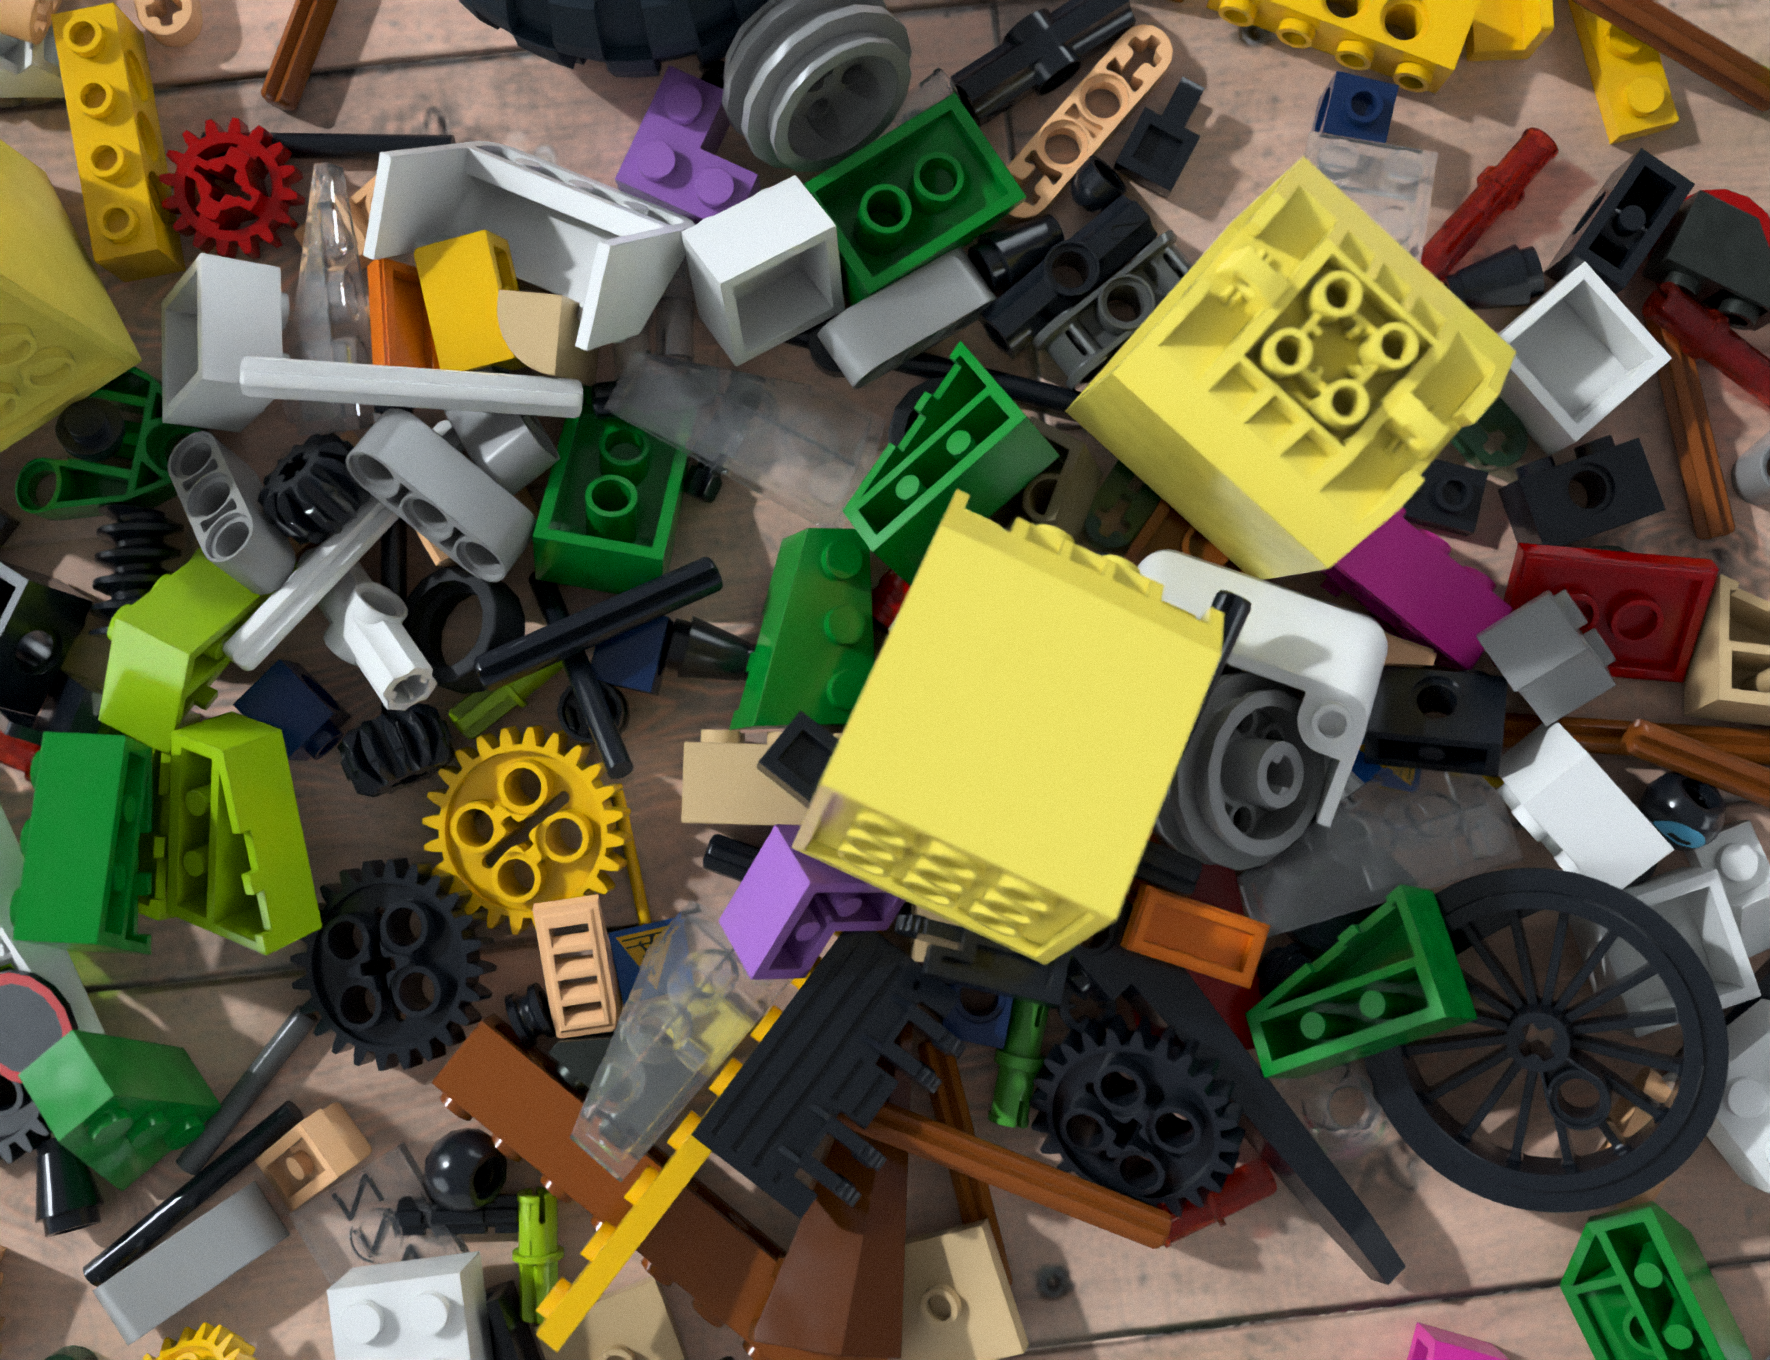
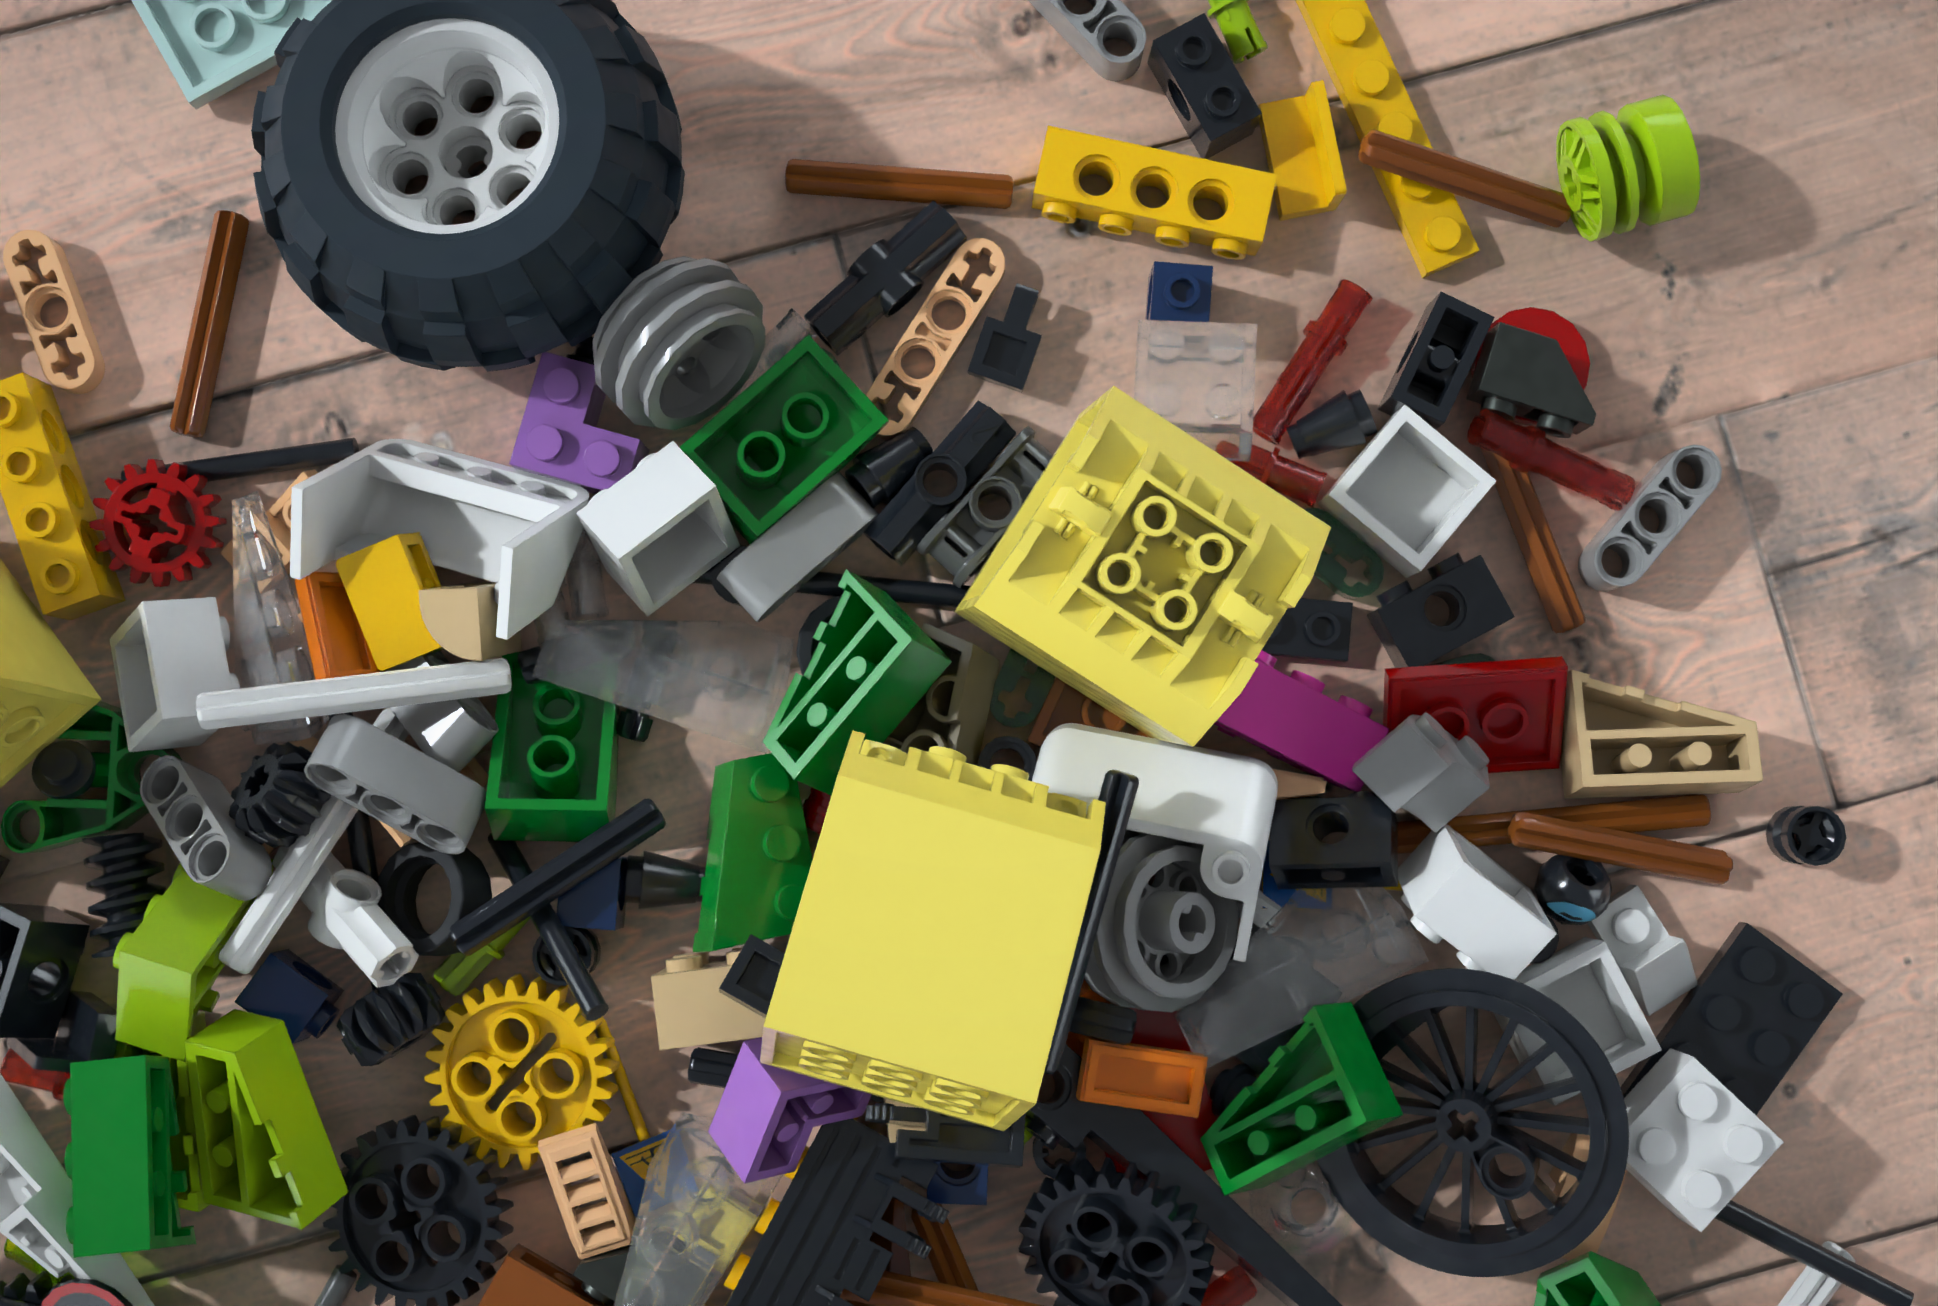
camera: 10 degrees left, 0 degrees up
(530, 1015) = (551, 1241): black bush -> none
(1018, 1064) = (1004, 1215): bright green pin -> none
(1096, 185) = (954, 392): black hinge -> none

